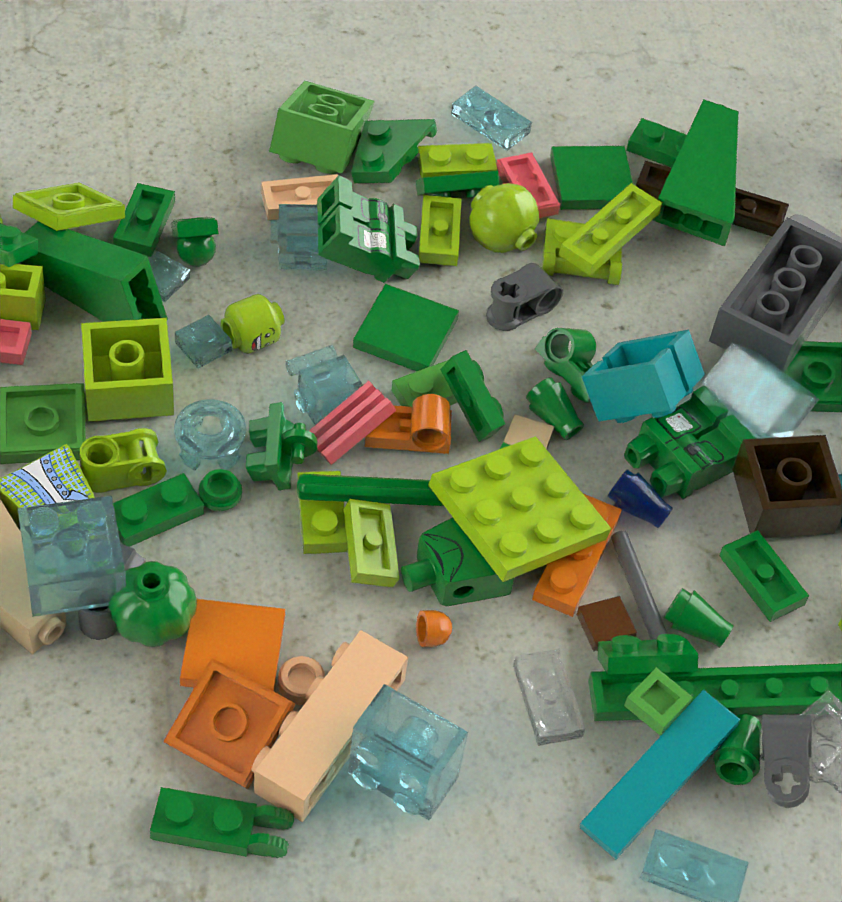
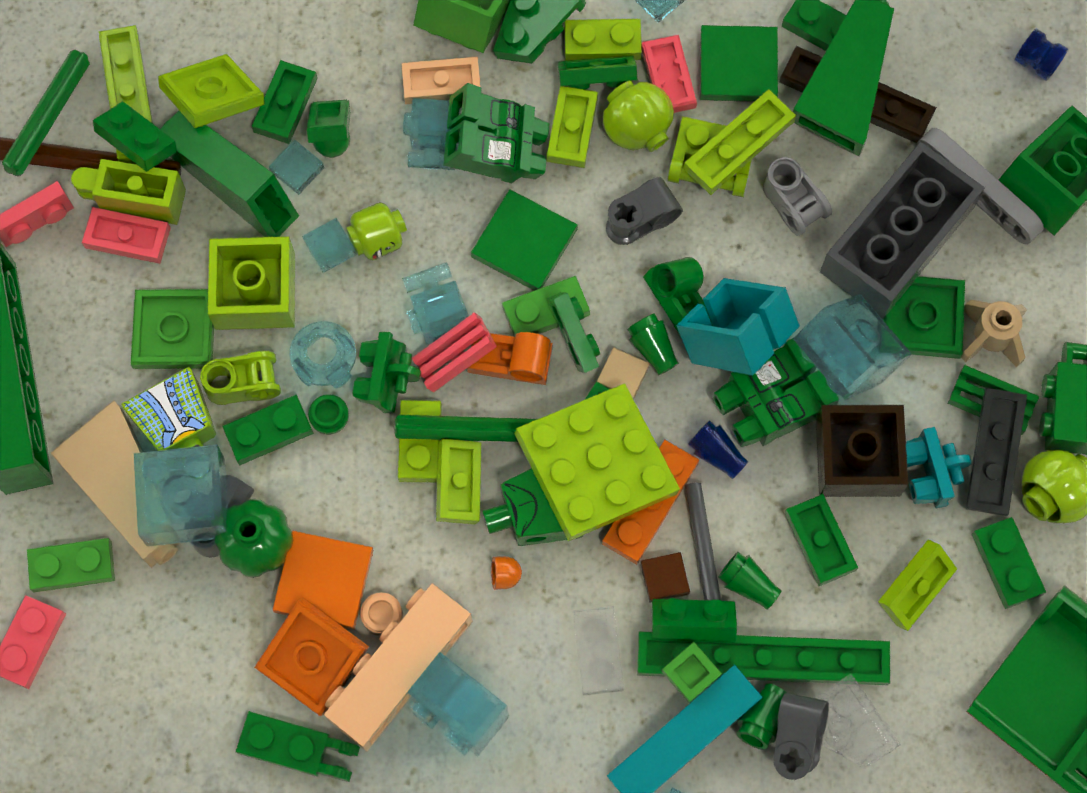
camera: 15 degrees right, 20 degrees up
(669, 275) = (799, 202): none -> light grey piece

